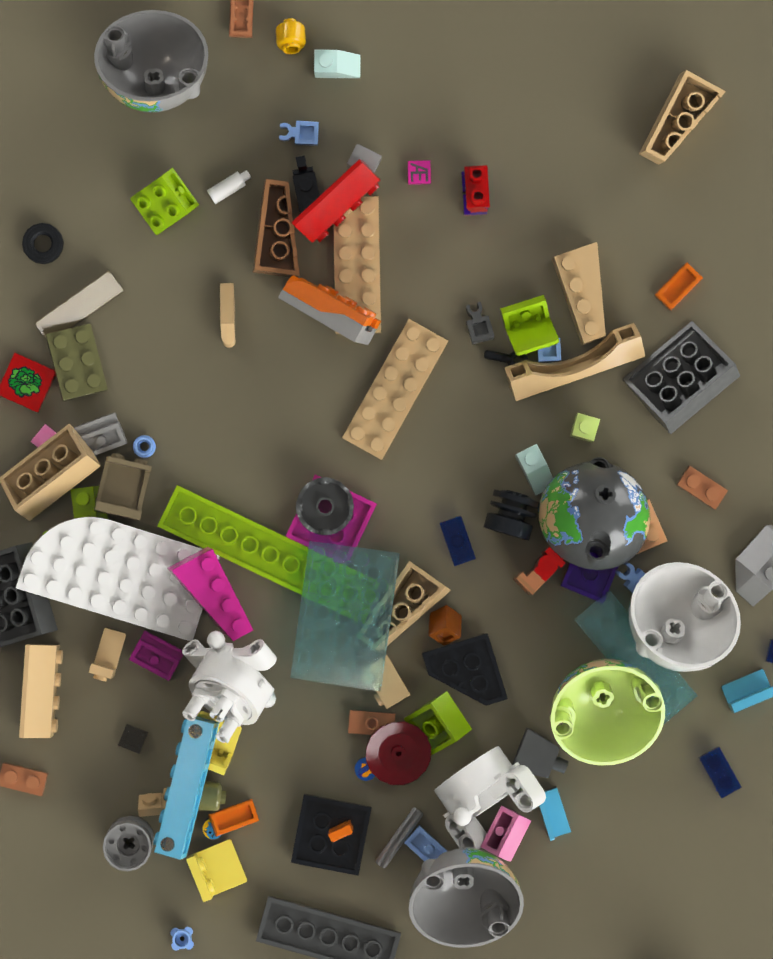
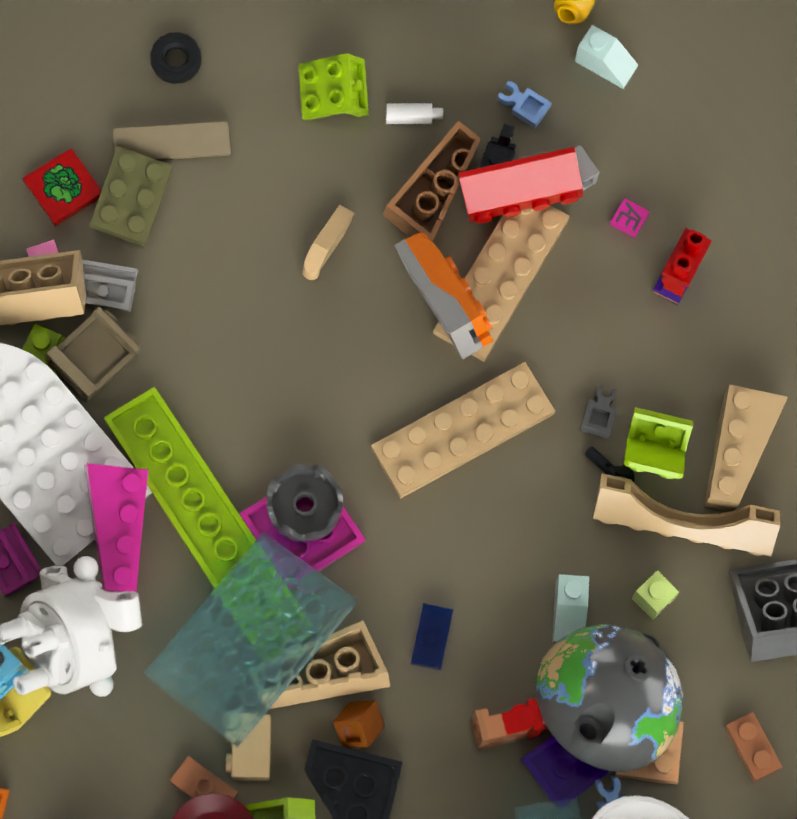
camera: 25 degrees right, 15 degrees down
(137, 446) = (142, 319): light blue plate -> none
(511, 514) = (506, 645): black wheel -> none
(550, 354) = (663, 489): light blue plate -> none

